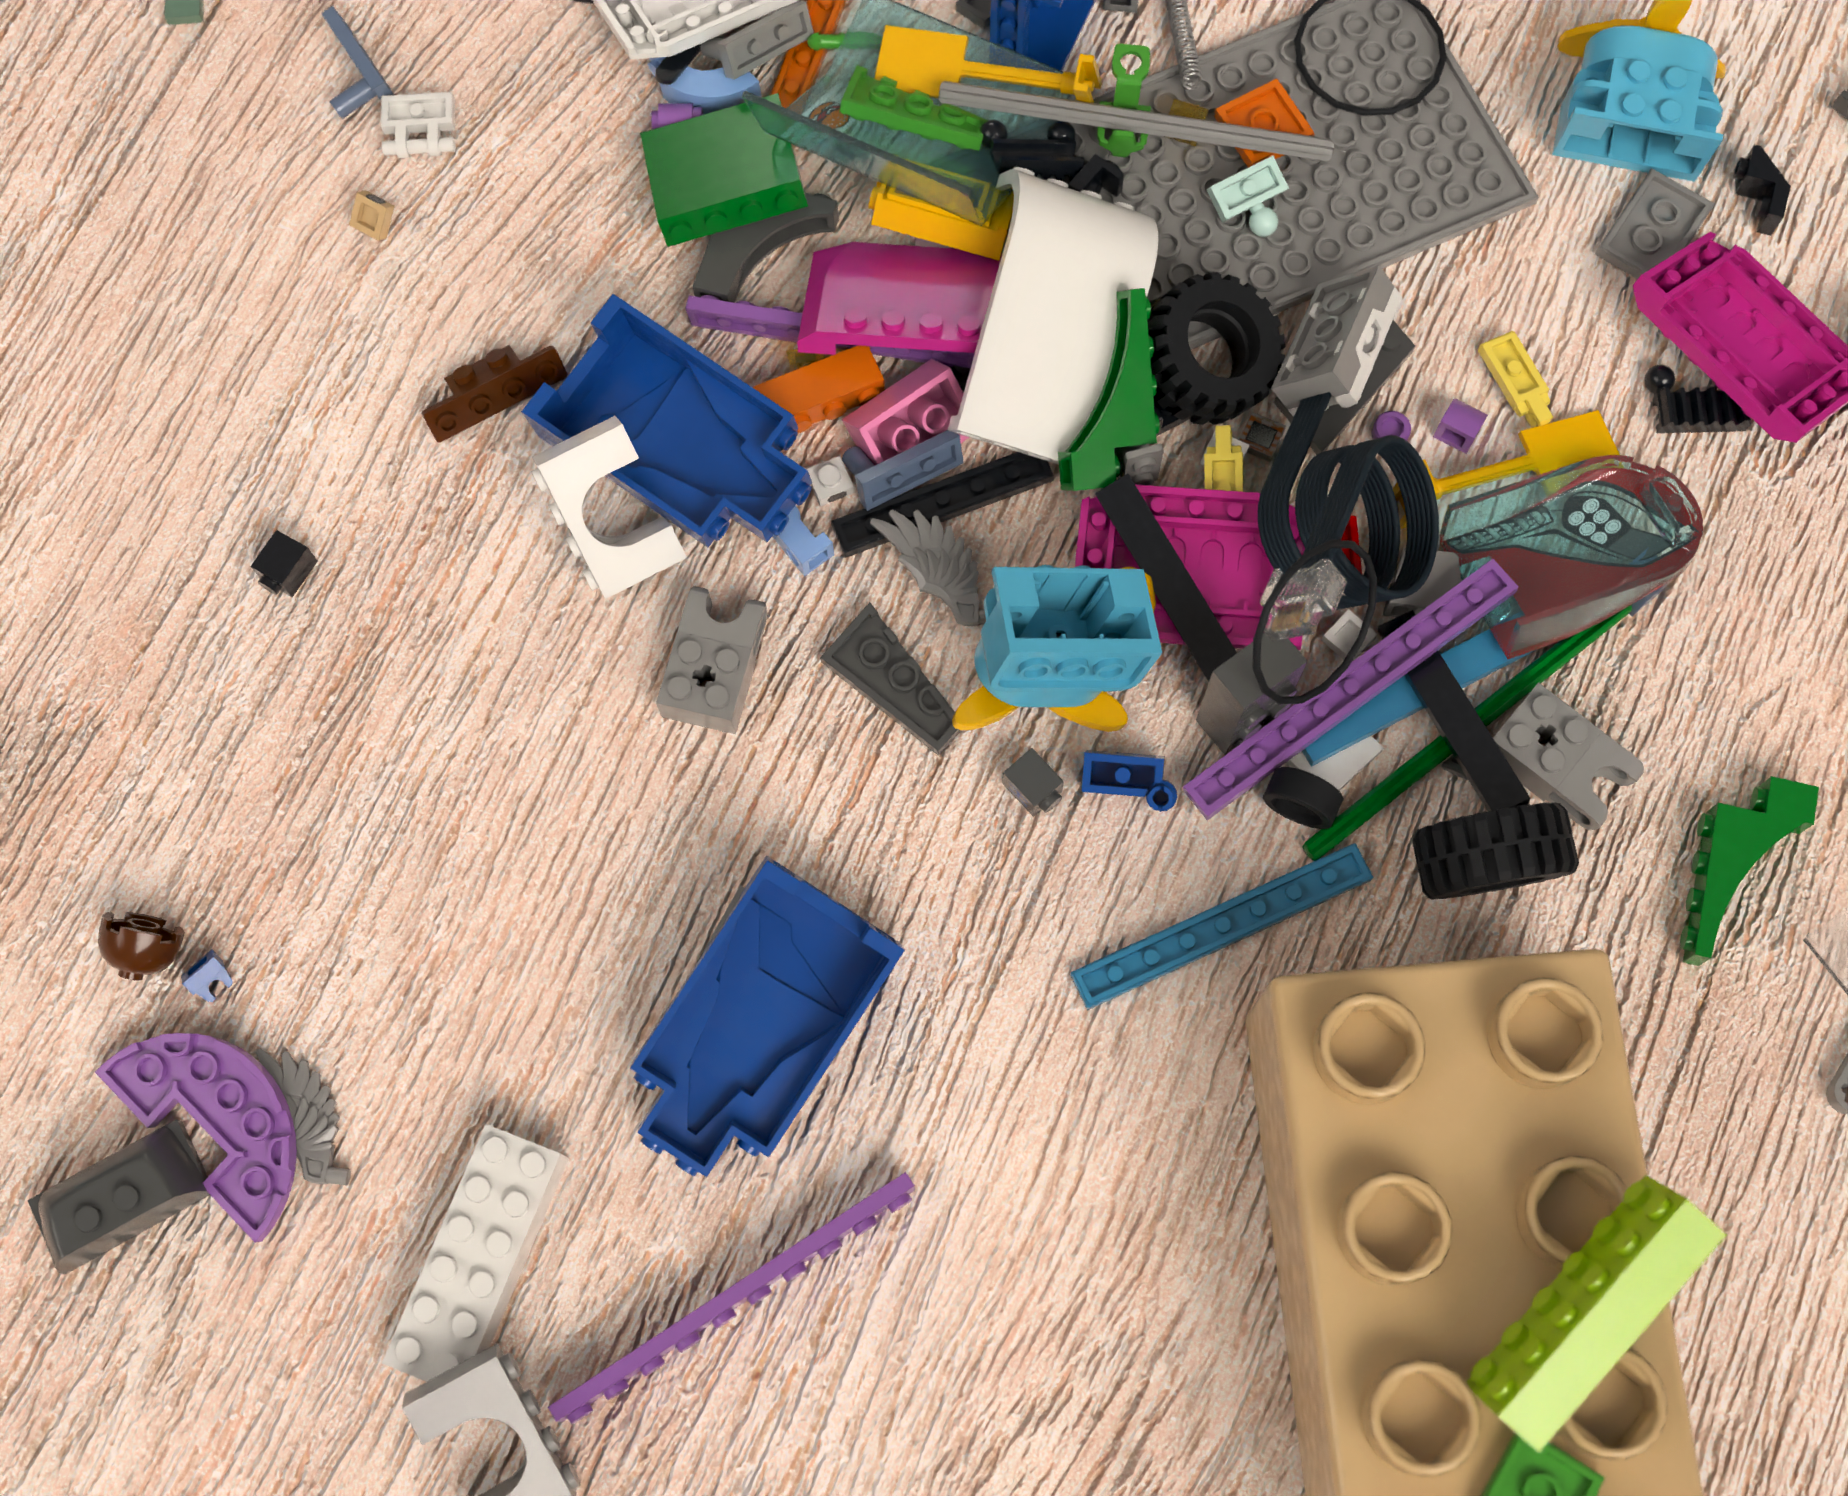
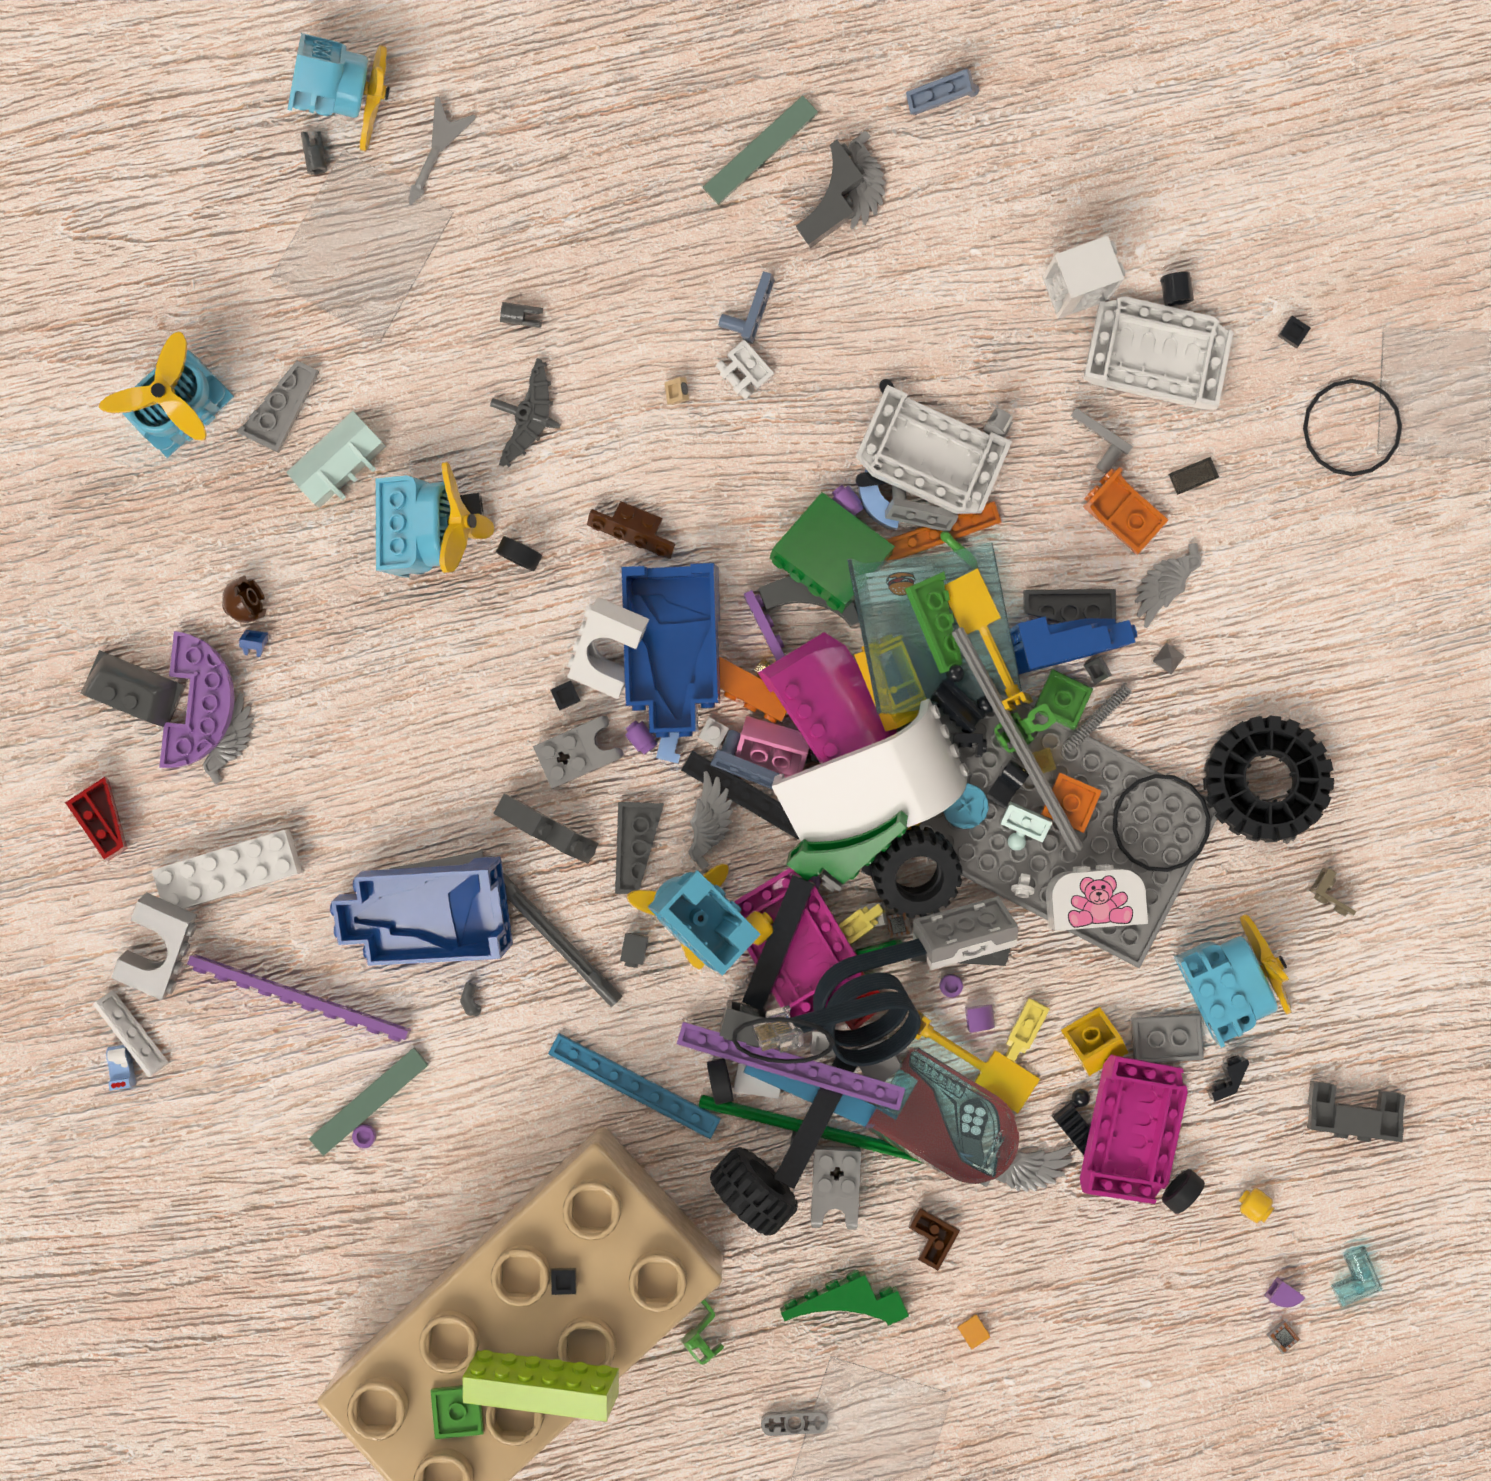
camera: 45 degrees right, 15 degrees up
(79, 682) = (336, 460): none -> light aqua piece
(106, 331) = (515, 314): none -> dark grey hinge
(243, 407) = (530, 415): none -> dark grey bar
(246, 1387) = (99, 818): none -> red wedge
(248, 614) = (423, 524): none -> medium azure brick
(396, 538) = (519, 553): none -> black tyre
(627, 623) = (565, 695): none -> black plate
(760, 568) = (640, 737): none -> medium lavender brick
(774, 771) = (545, 829): none -> dark grey arch
(930, 1063) = (468, 1002): none -> dark grey arm
(952, 875) = (561, 944): none -> dark grey piece
(962, 1318) = (368, 1101): none -> sand green tile
(1007, 1363) = (364, 1136): none -> medium lavender tile
(1128, 776) = (669, 992): blue hinge -> none
(1134, 32) = (1064, 698): none -> bright green tile
(1178, 175) = (1007, 784): none -> black panel
(1179, 250) = (968, 809): none -> medium azure tile
(1329, 249) = (1023, 889): none -> white plate
(1412, 167) = (1095, 898): none -> brick
(1448, 1171) = (563, 1281): none -> black plate
(1596, 308) = (1094, 1040): none -> yellow slope
(1654, 1101) = (693, 1339): none -> bright green piece
(1720, 499) = (1034, 1169): none -> light grey animal
(1727, 672) = (939, 1235): none -> reddish brown brick

